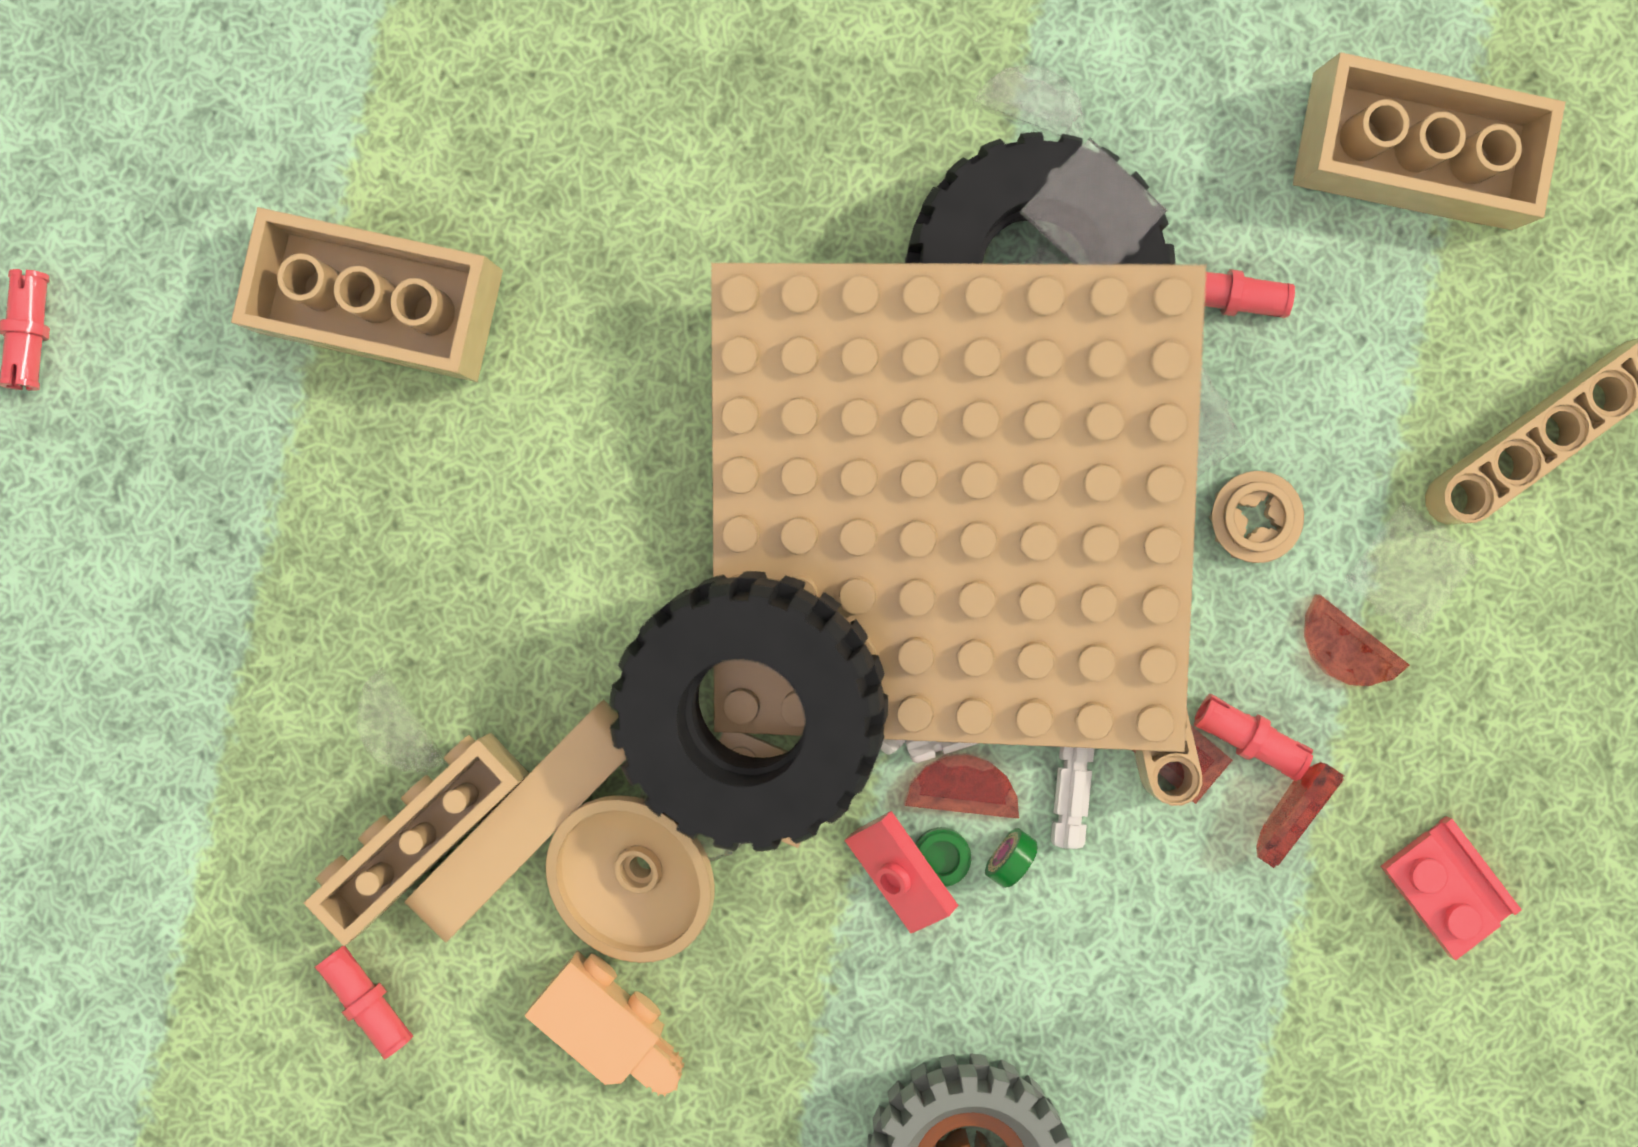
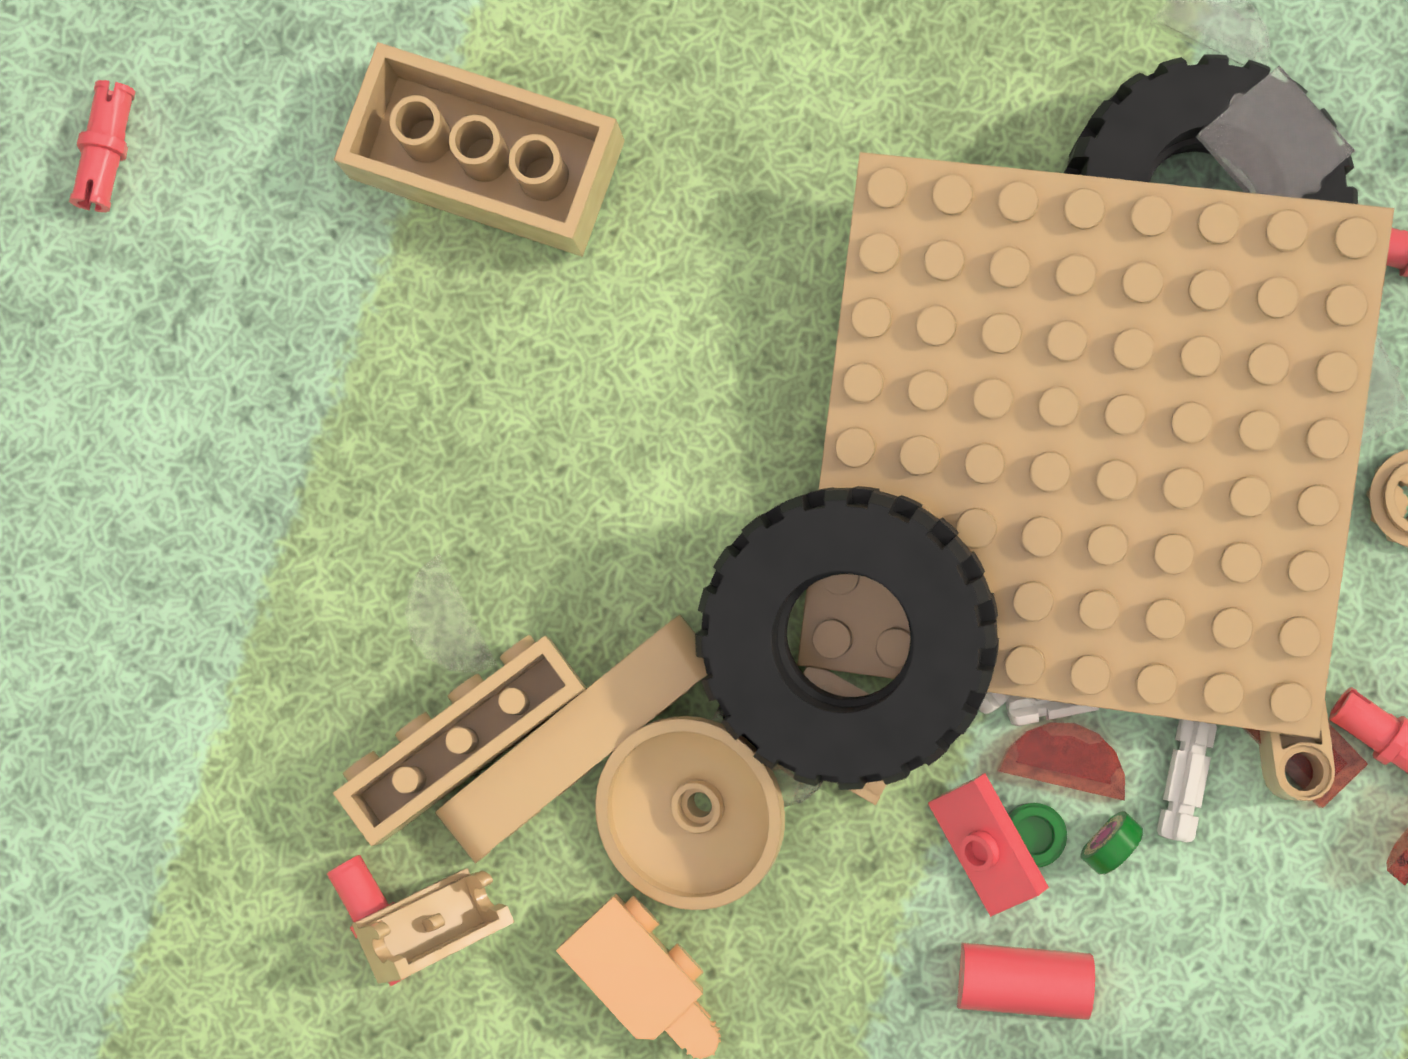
camera: 15 degrees right, 5 degrees down
(410, 1005) = (430, 925): none -> tan hinge
(948, 986) = (1026, 981): none -> coral brick

